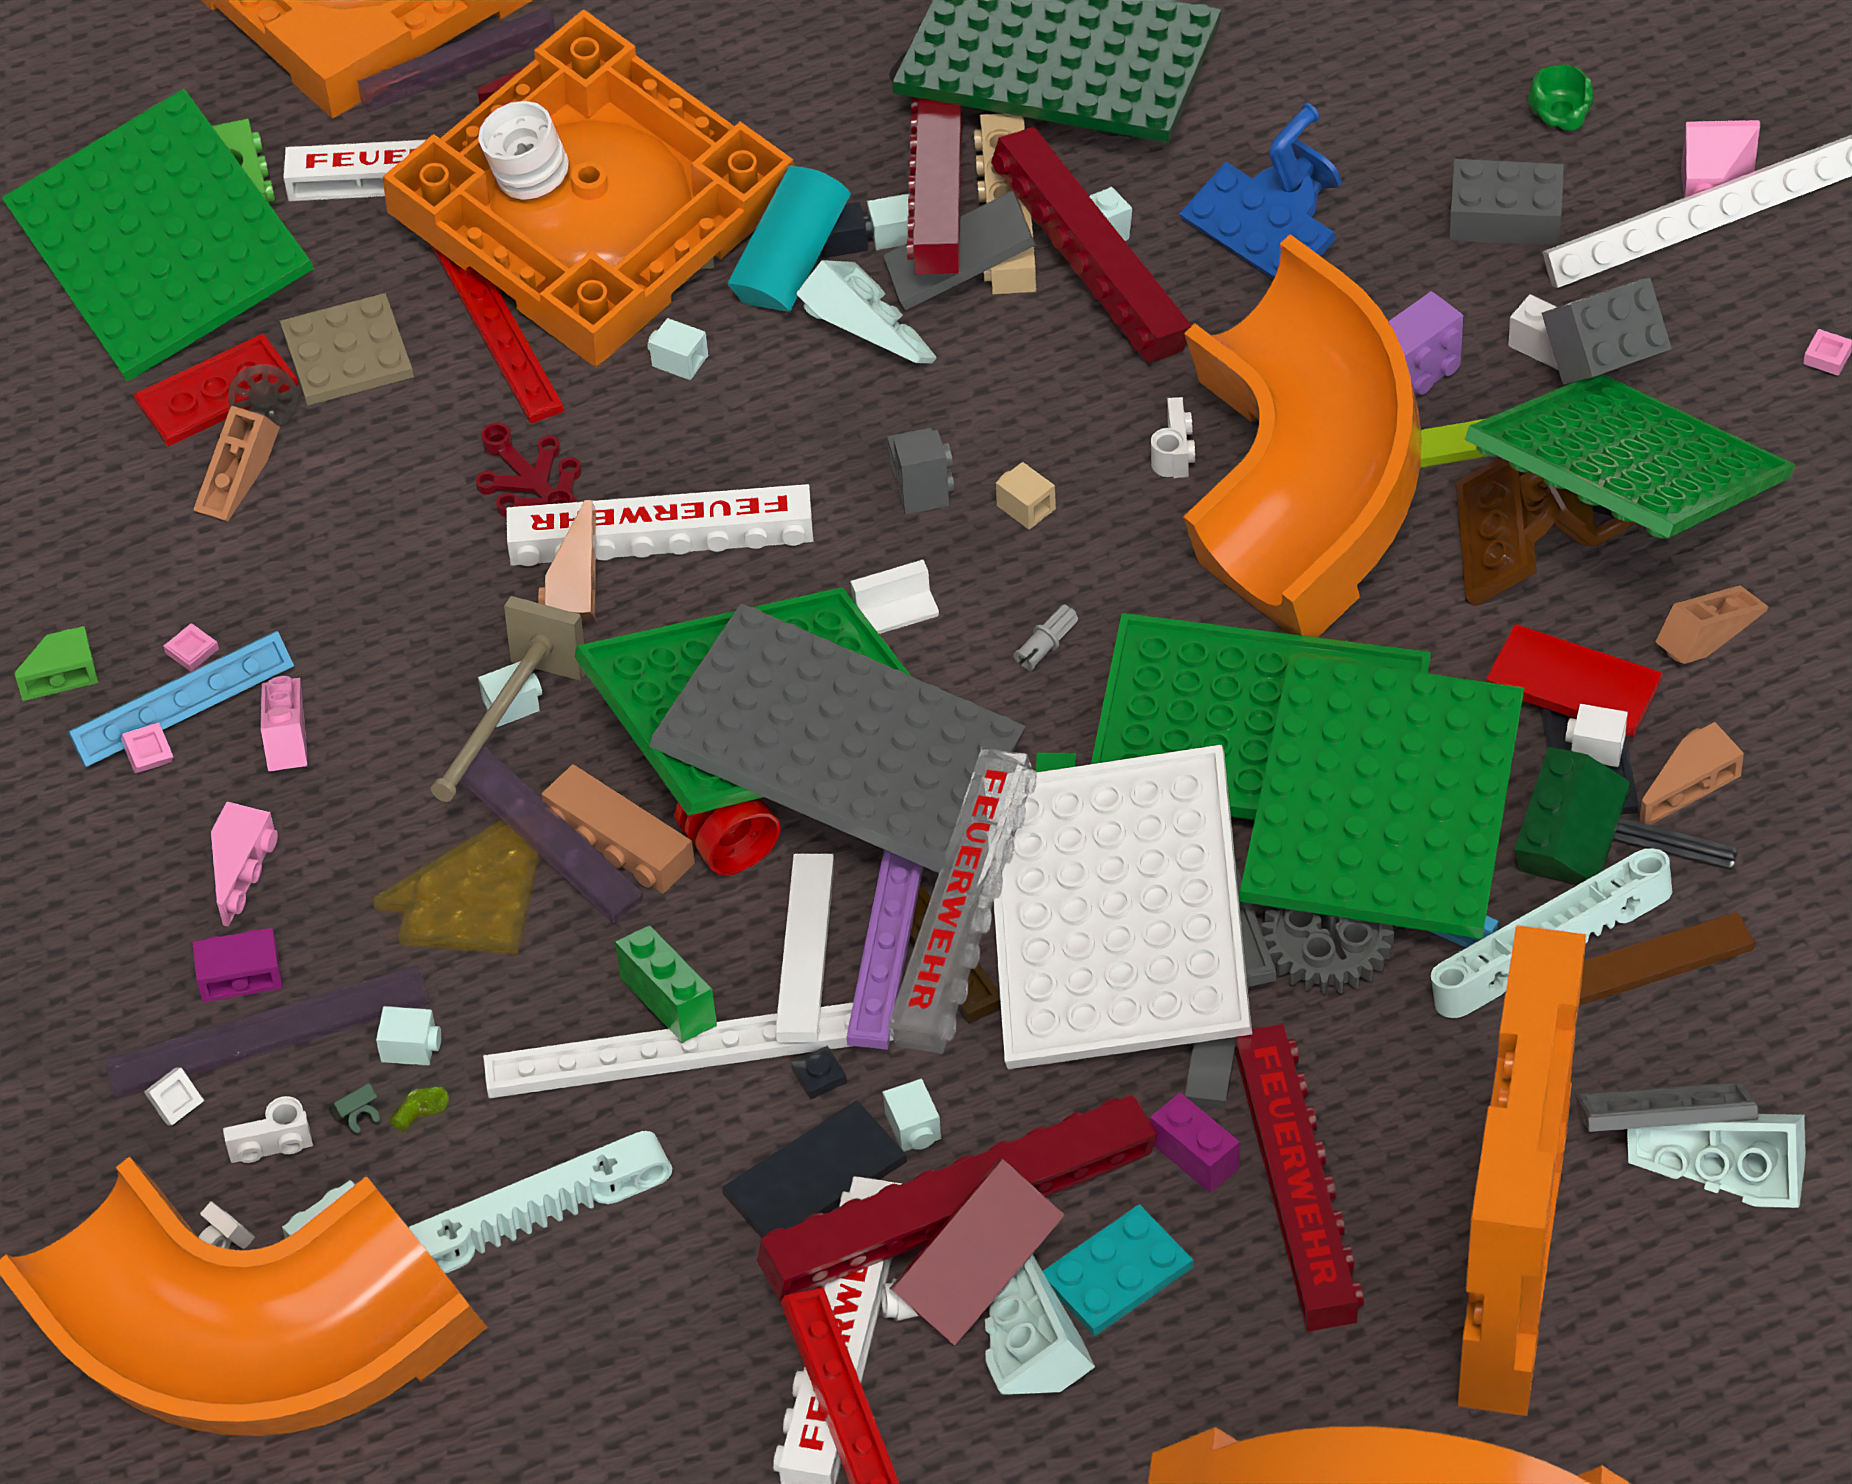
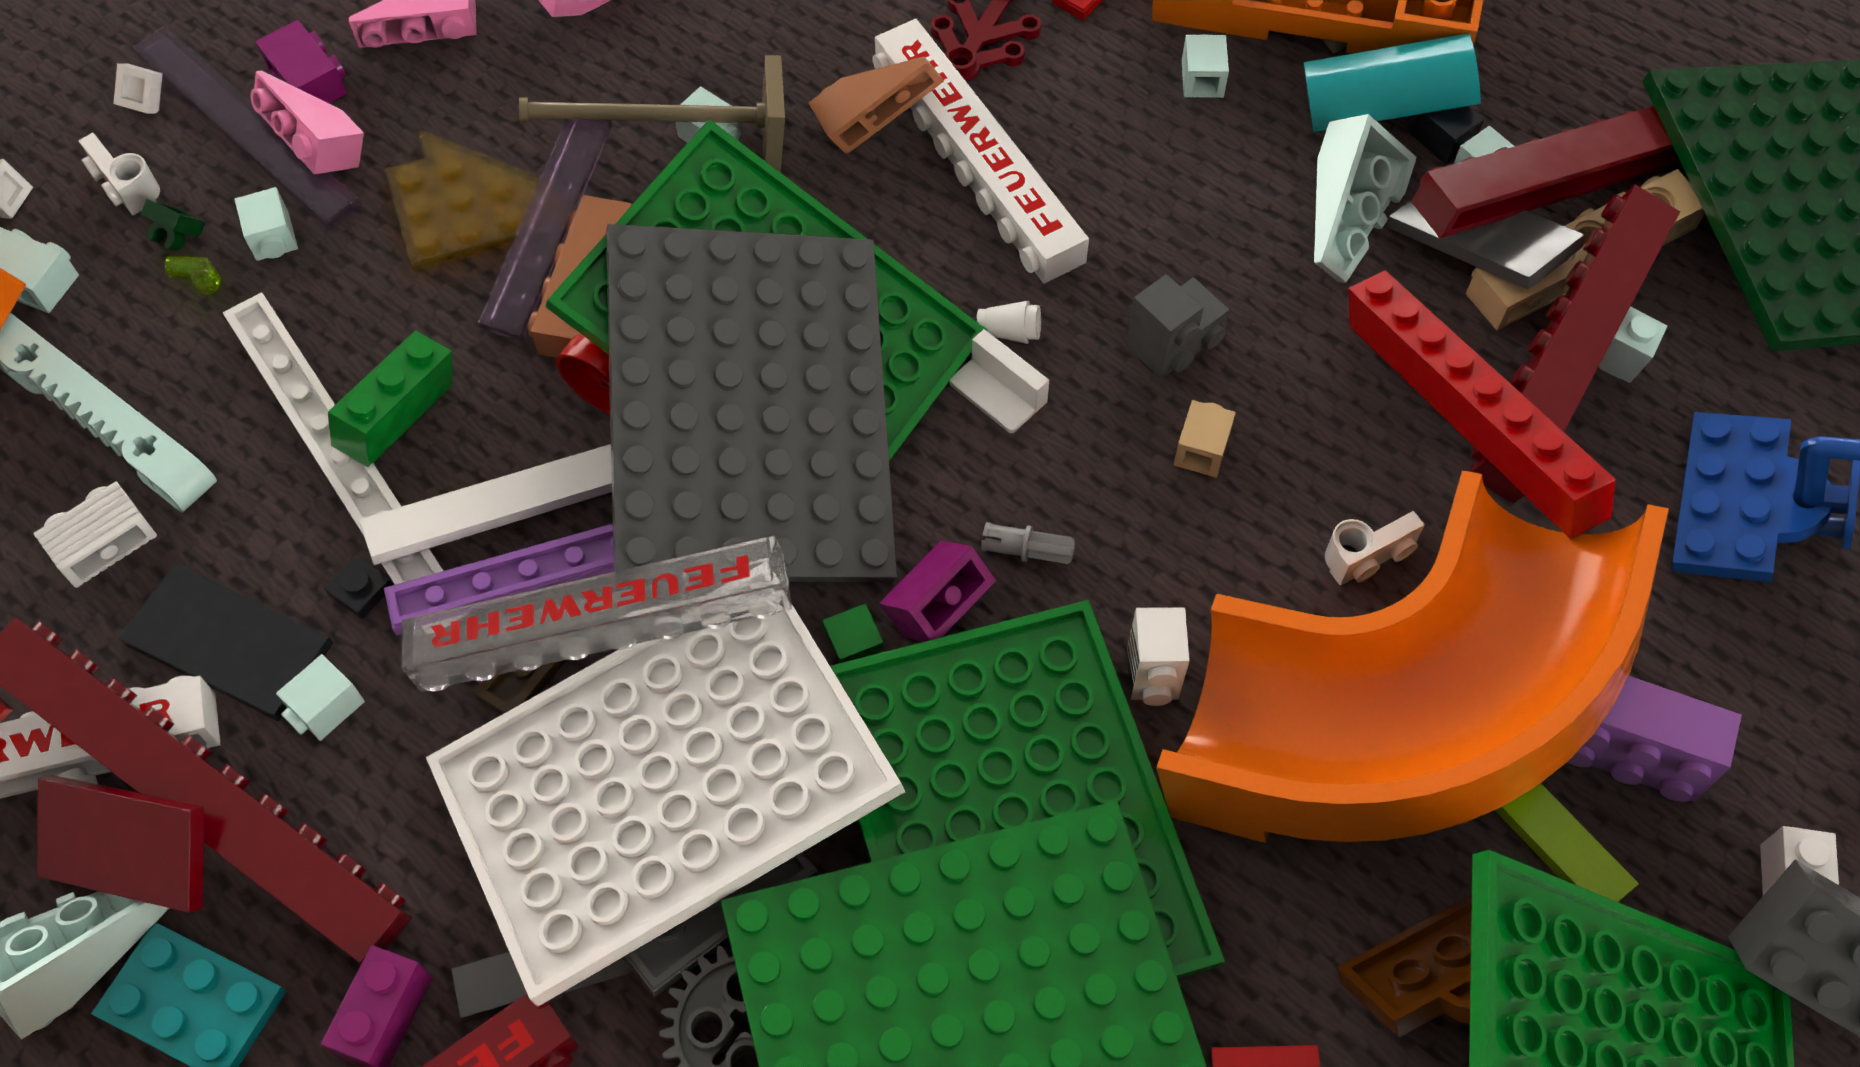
camera: 60 degrees right, 10 degrees up
(314, 973) = (309, 126): none -> bright pink slope
(659, 1233) = (94, 534): none -> white brick
(845, 566) = (1012, 321): none -> white cone
(1059, 699) = (937, 591): none -> magenta brick
(1109, 315) = (1482, 406): none -> red brick
(1192, 586) = (1158, 654): none -> white brick

